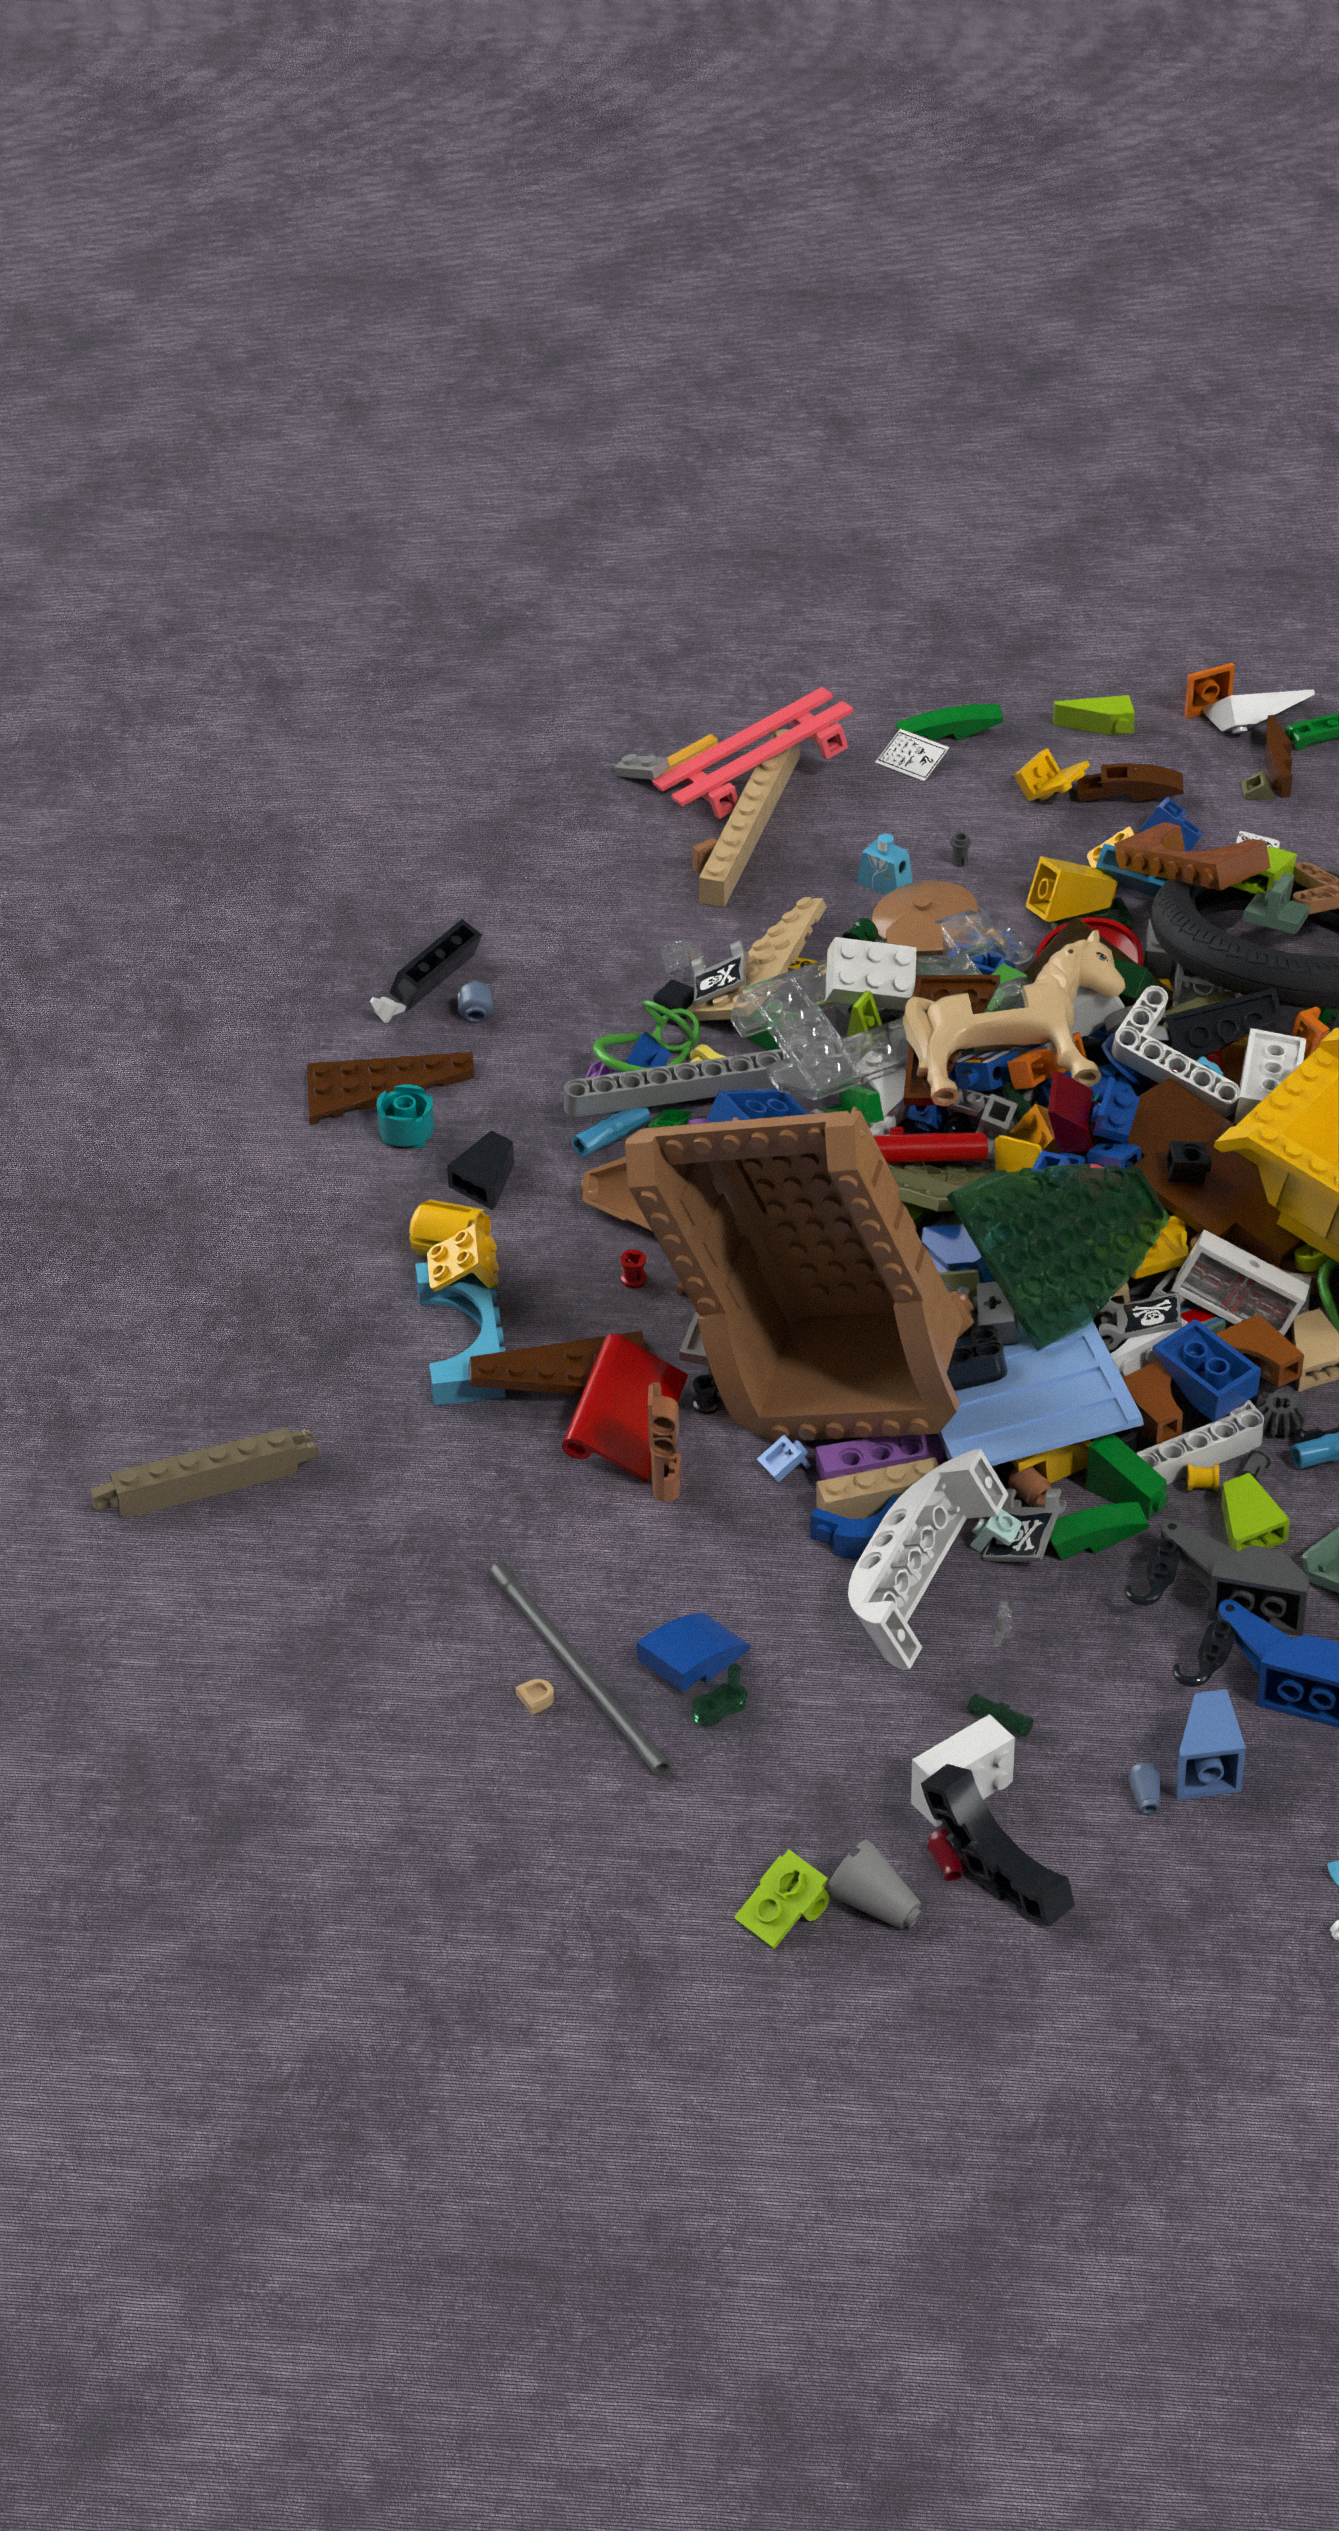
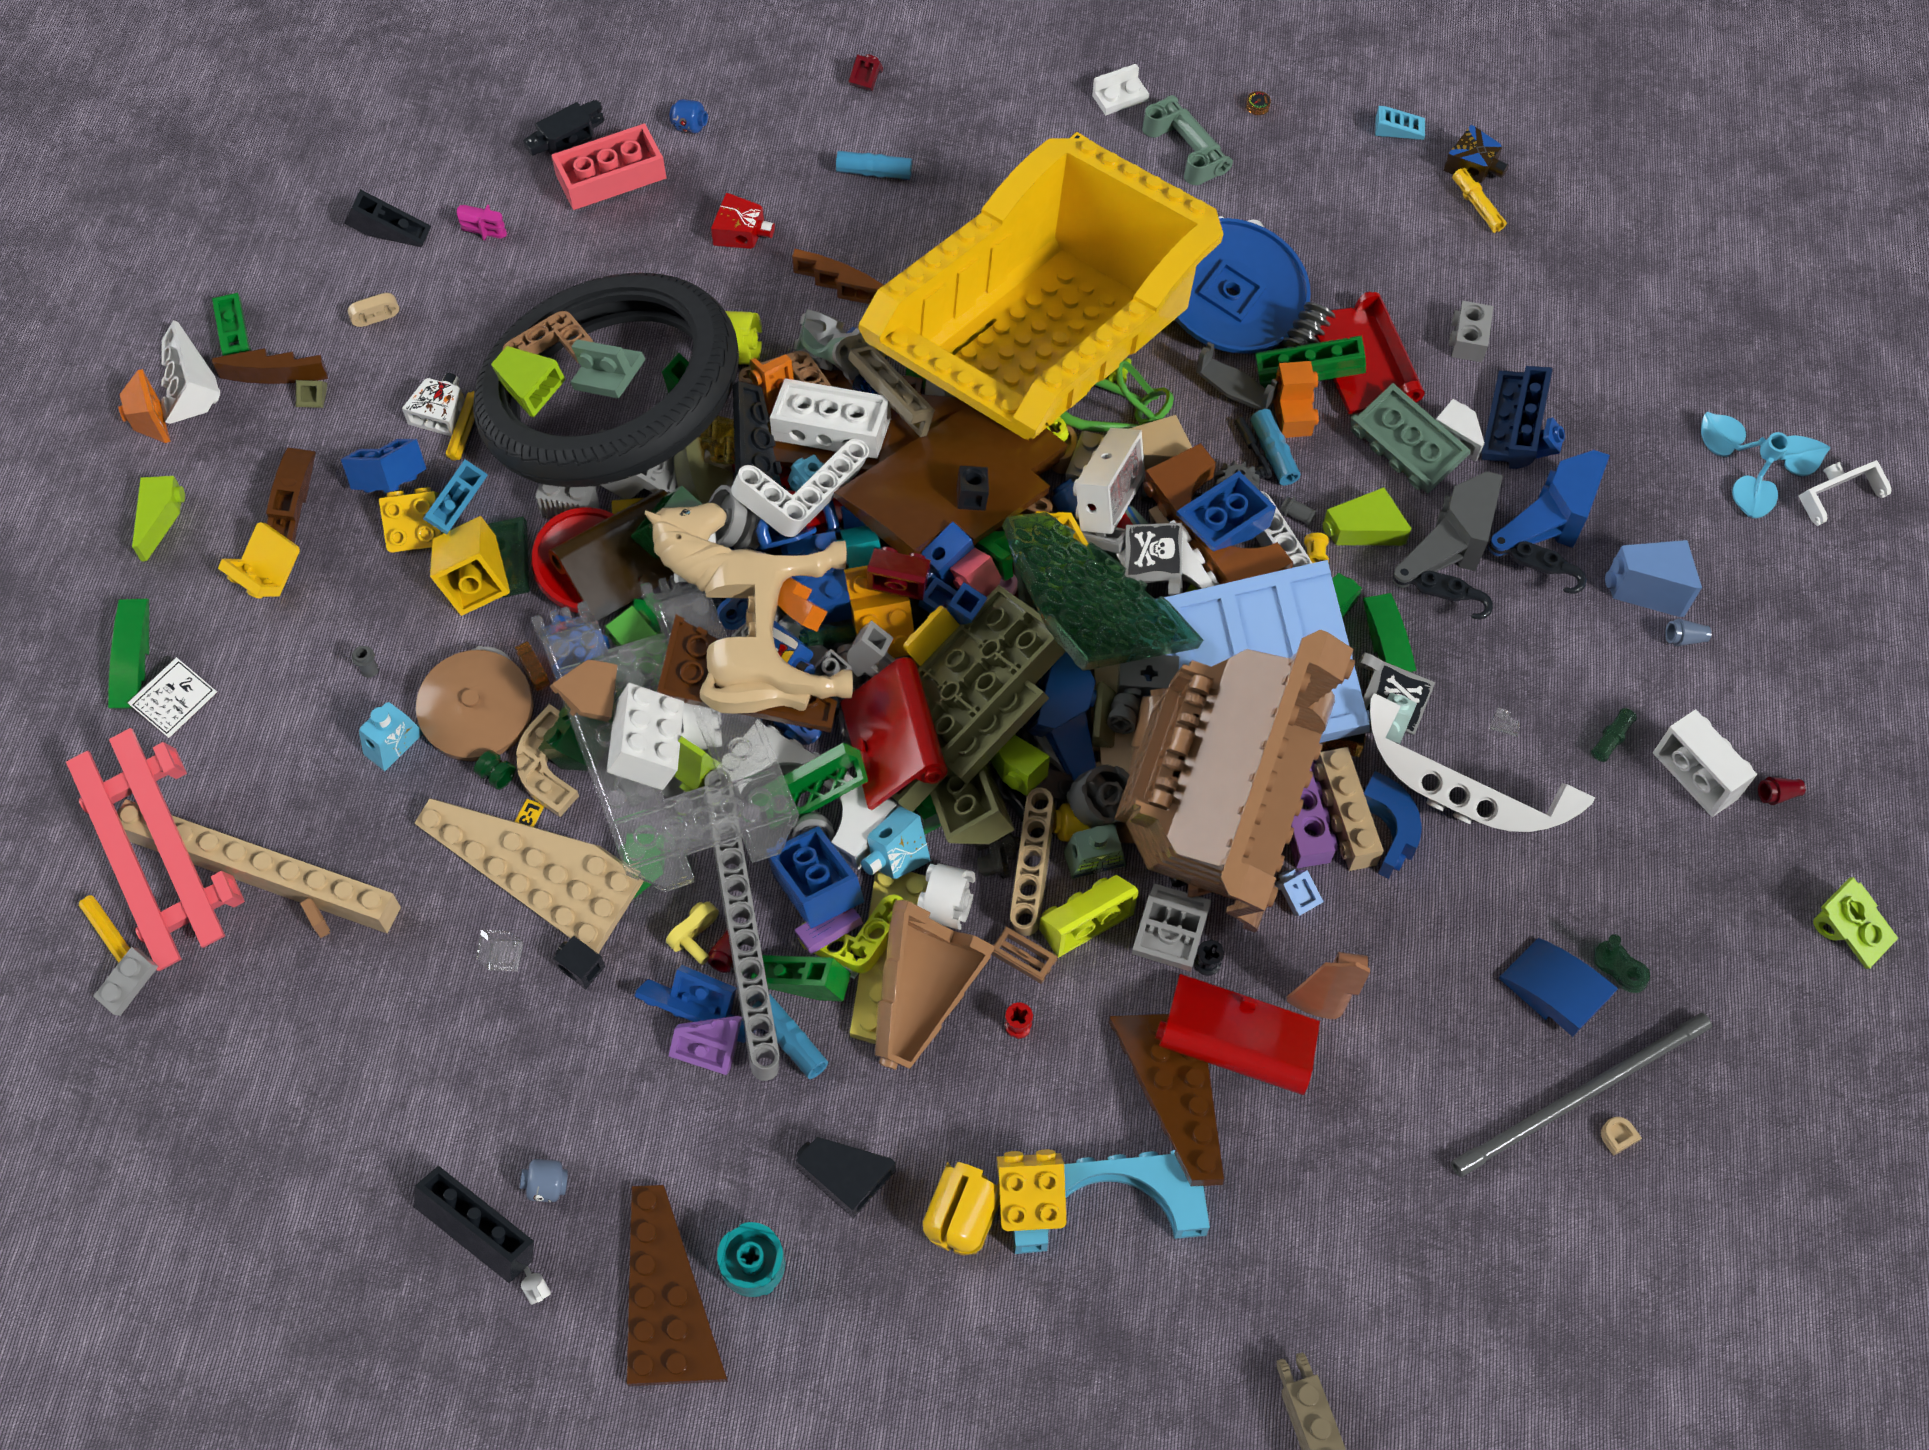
camera: 90 degrees left, 20 degrees up
(650, 1007) = (648, 965): bright green animal -> none
(720, 977) = (561, 906): flag -> none
(874, 1888) = (1837, 849): light grey cone -> none
(991, 1852) = (1794, 748): black brick -> none
(1115, 1114) = (908, 534): blue bracket -> none
(1163, 854) = (552, 404): dark orange arch -> none

